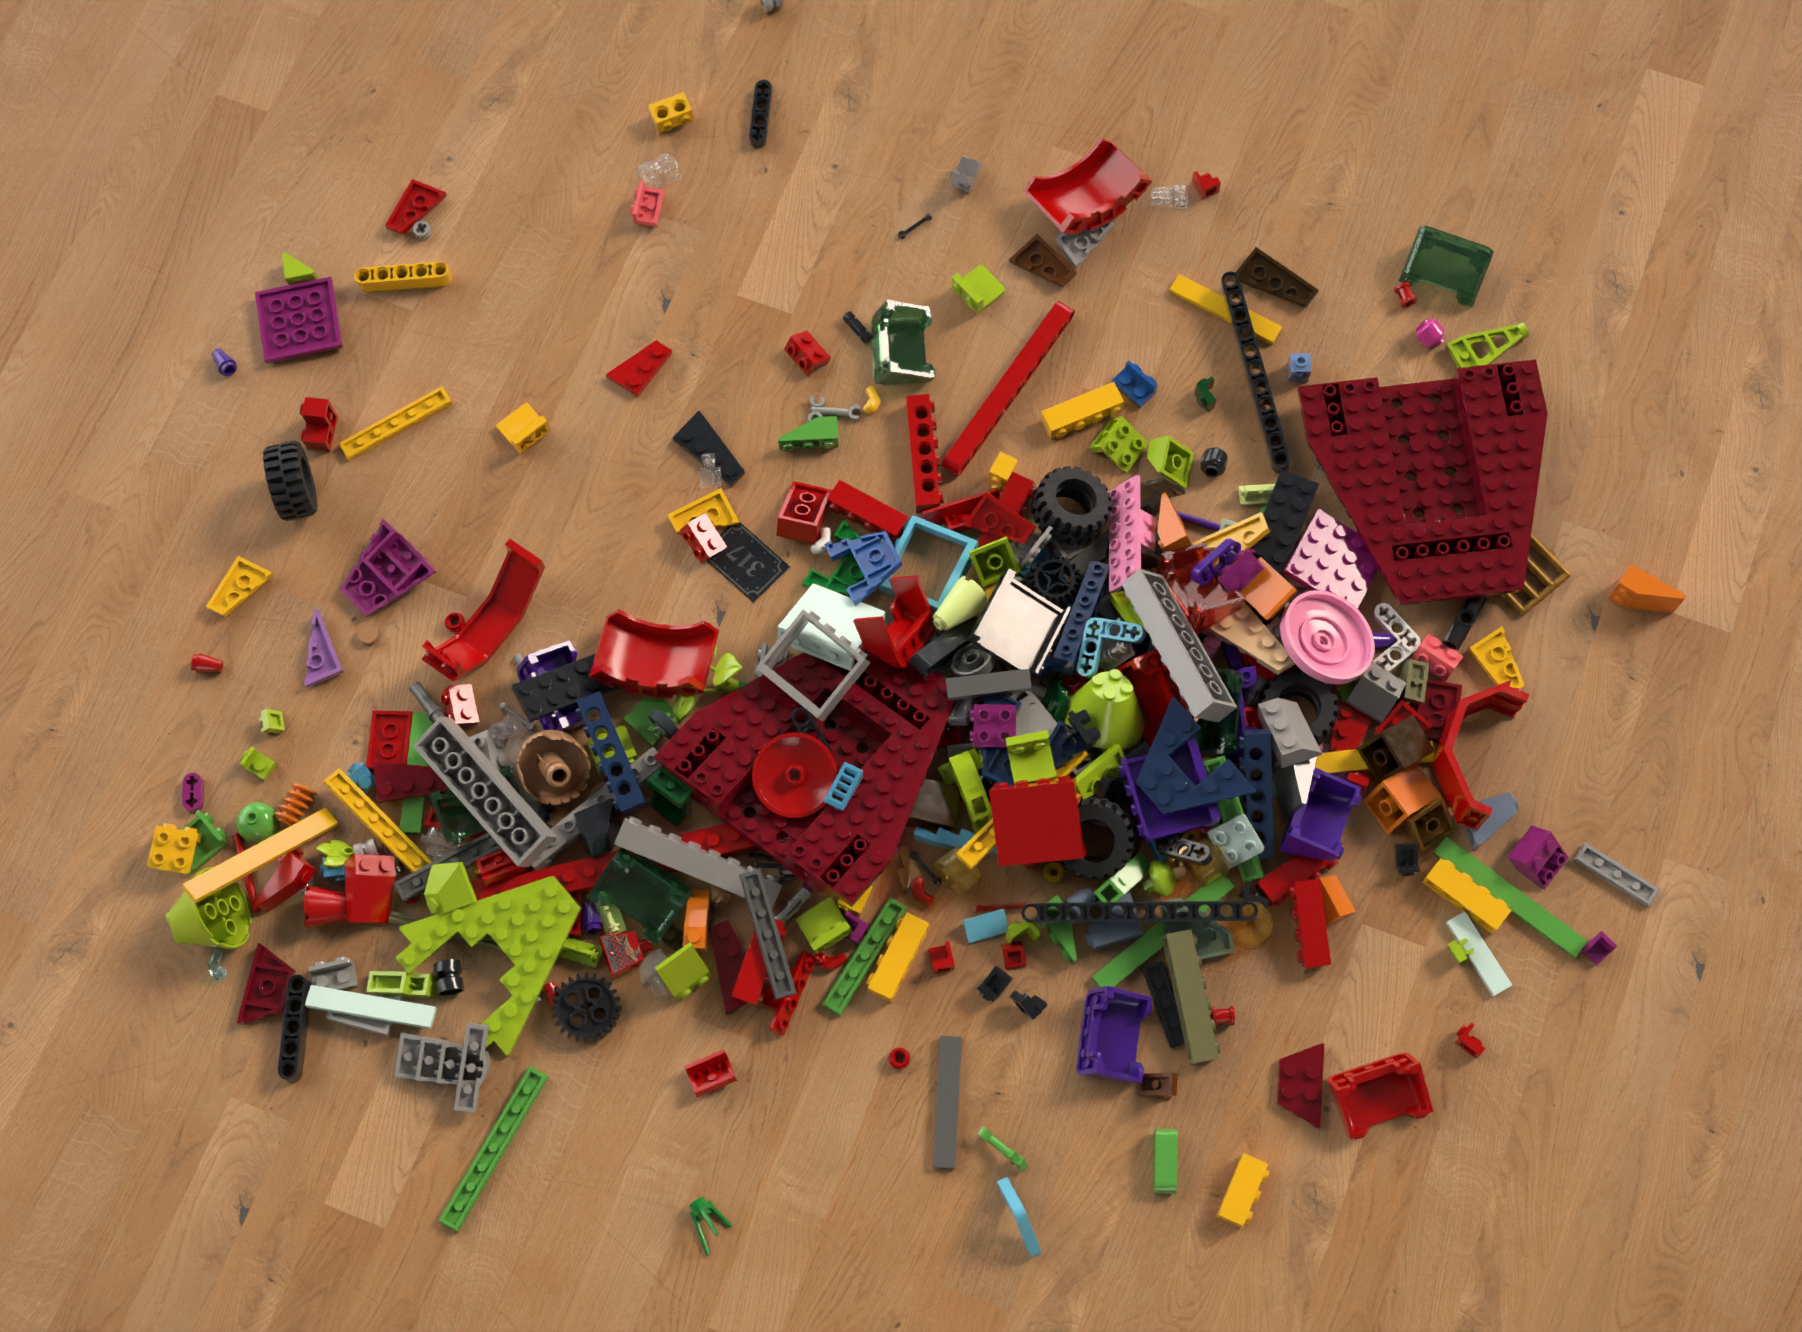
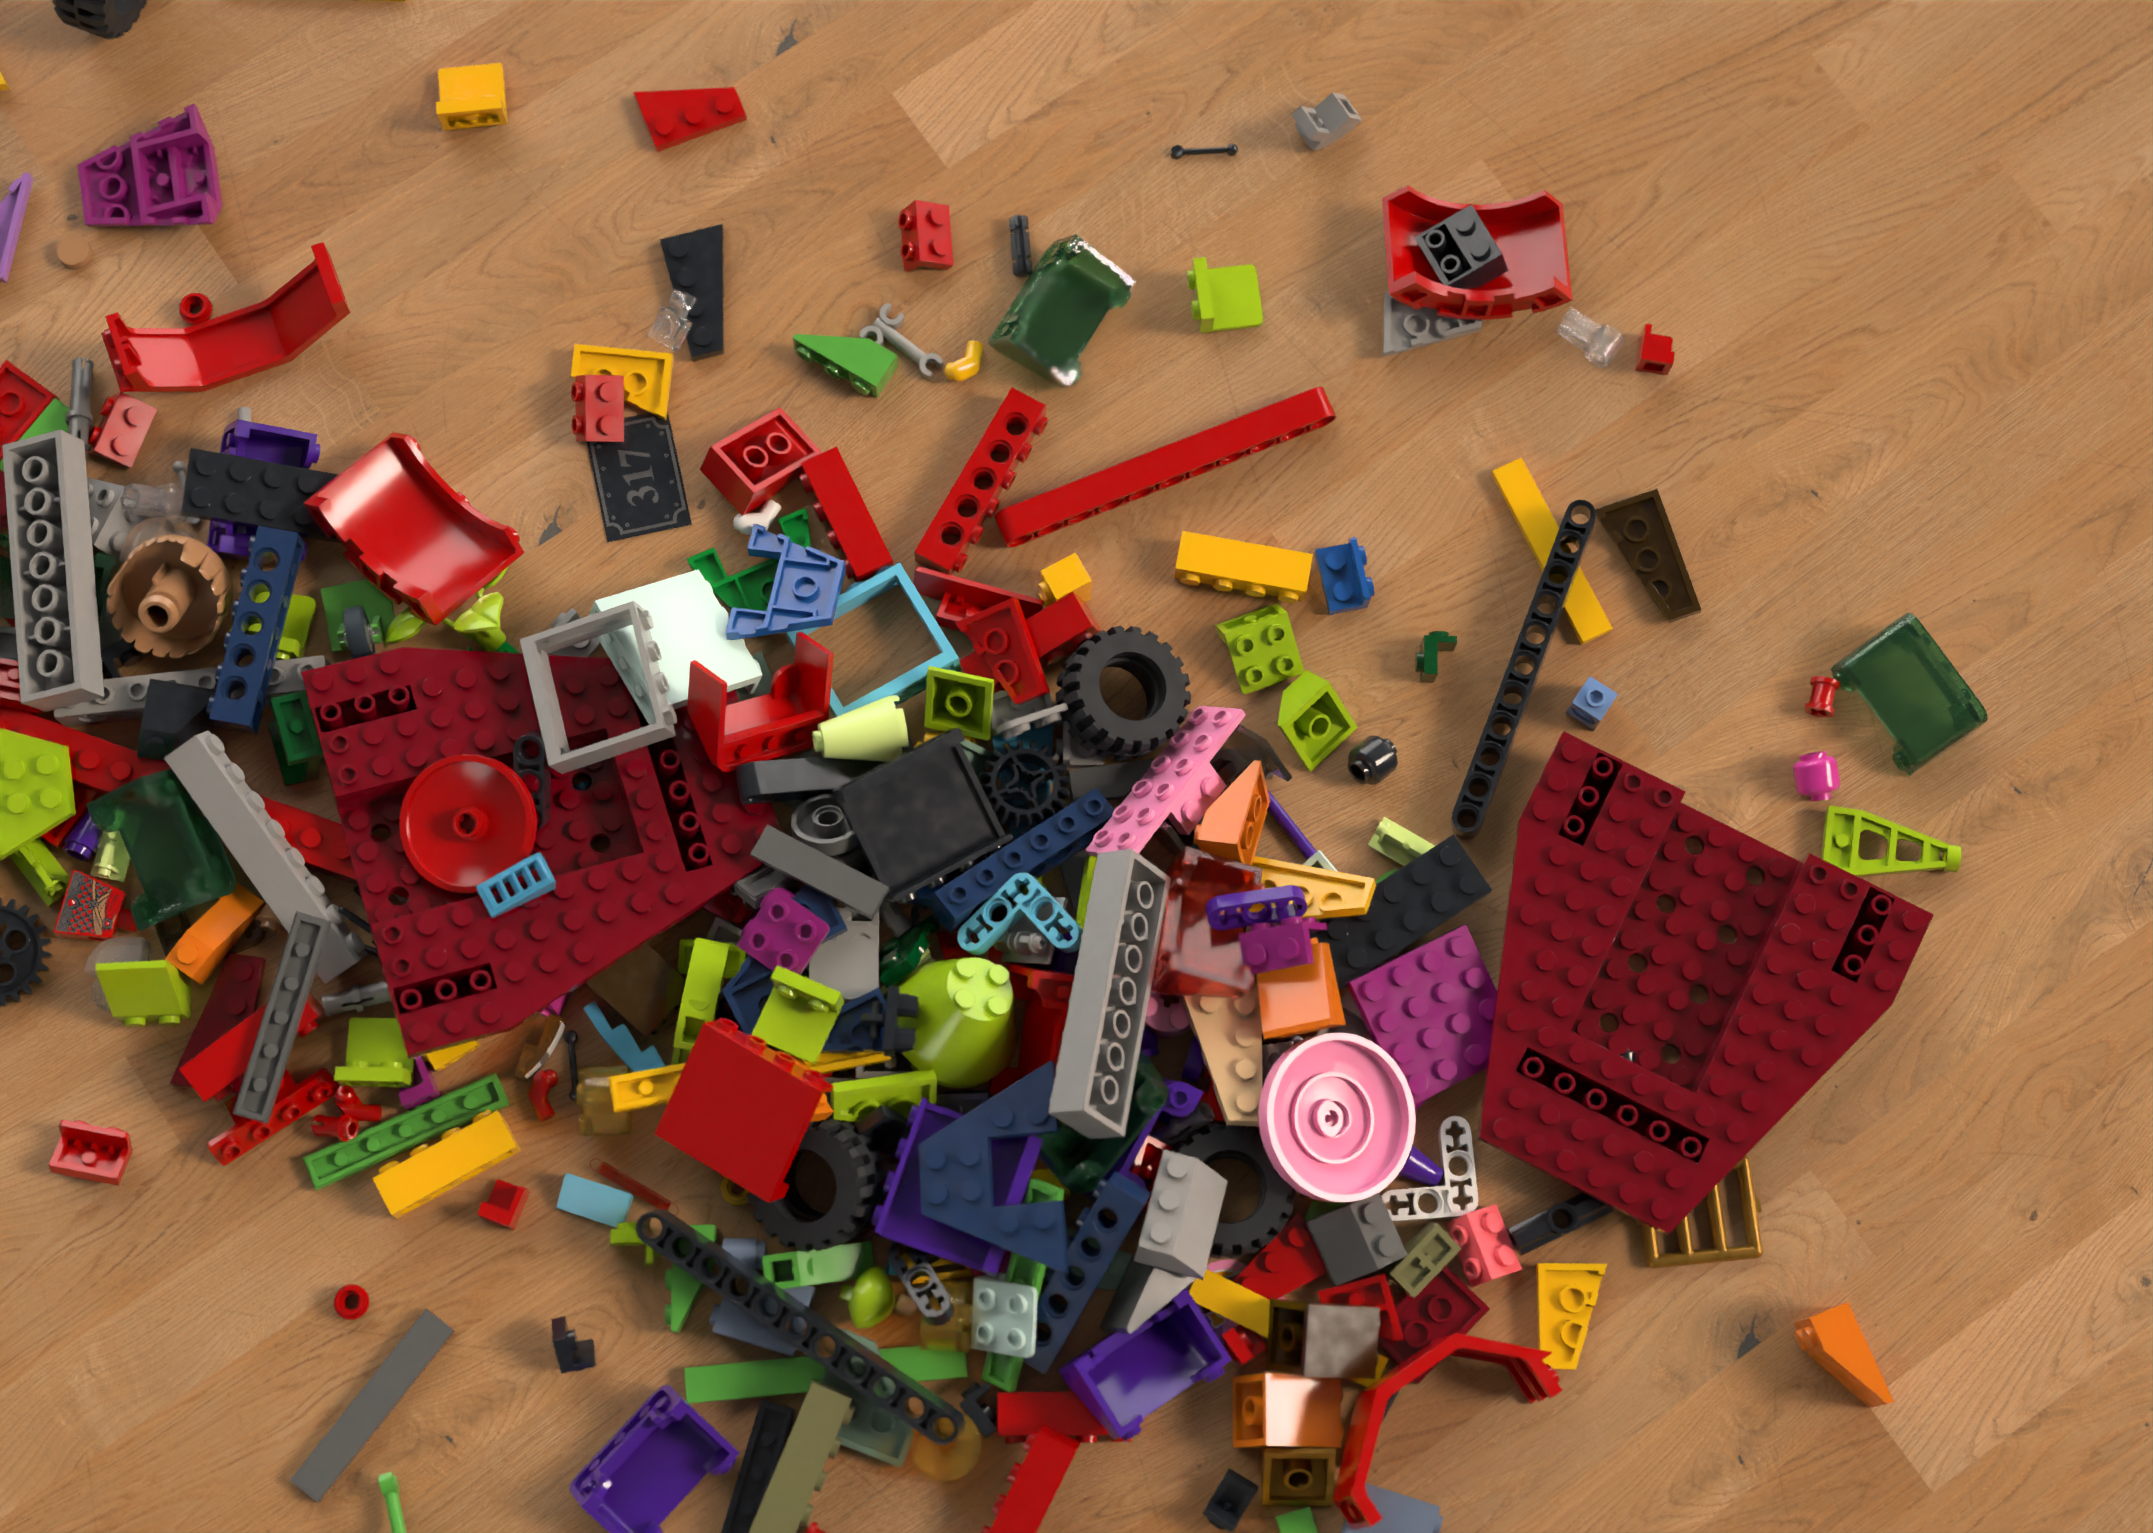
camera: 25 degrees right, 5 degrees up
(827, 977) = (342, 1127): none -> red pin
(994, 984) = (546, 1289): black bracket -> none
(1013, 954) = (604, 1264): red slope -> none
(1043, 261) = (1344, 316): reddish brown wing -> none
(1081, 191) = (1462, 251): none -> black slope
(1335, 901) = (1086, 1487): orange slope -> none

